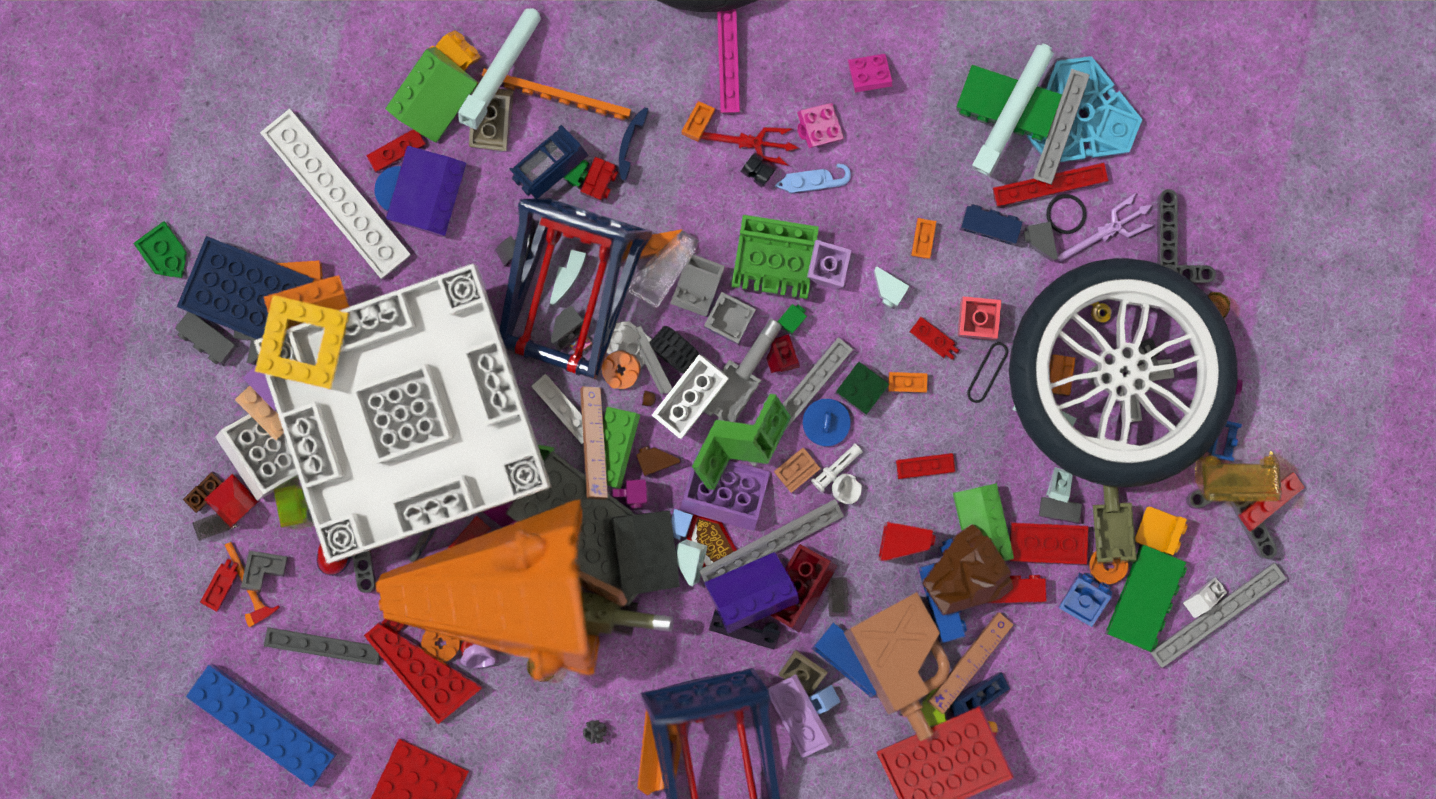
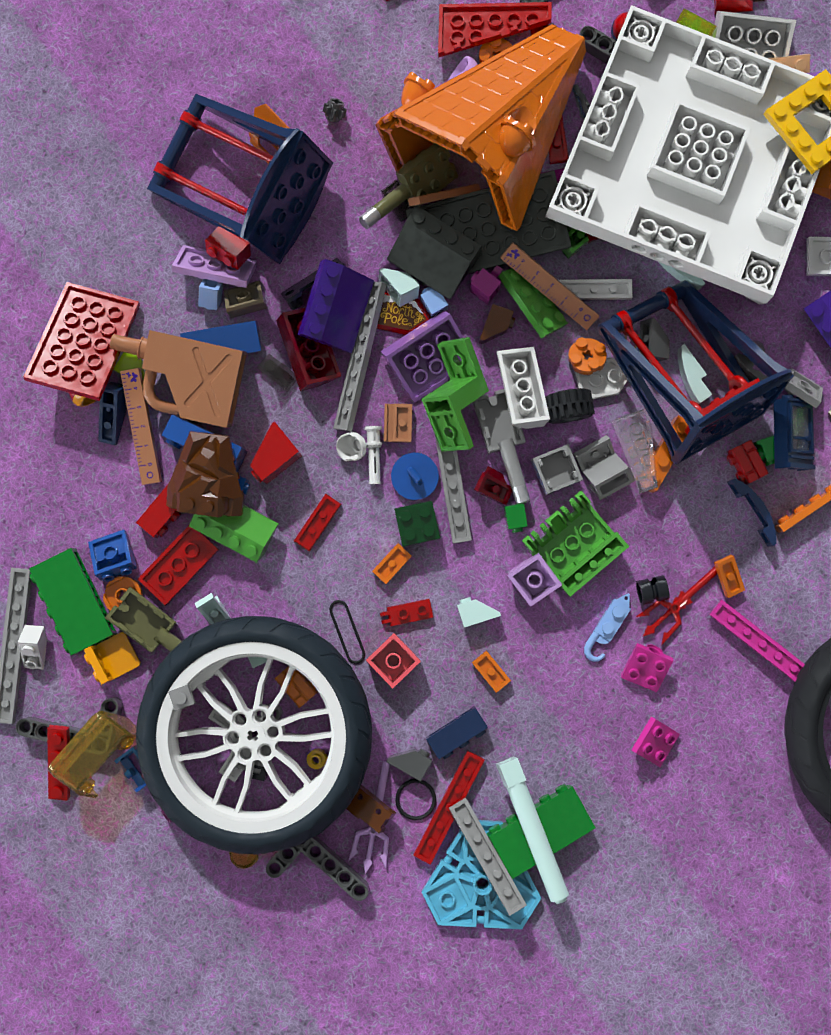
camera: 140 degrees right, 0 degrees up
(506, 185) = (804, 389): none -> light grey plate
(648, 398) = (547, 358): reddish brown hinge -> none
(652, 363) = (572, 382): light grey piece -> none
(780, 716) = (227, 248): none -> red brick
(1060, 510) = (193, 594): dark grey slope -> none
(1102, 239) = (370, 809): none -> reddish brown piece
(1142, 445) = (181, 697): none -> light grey plate

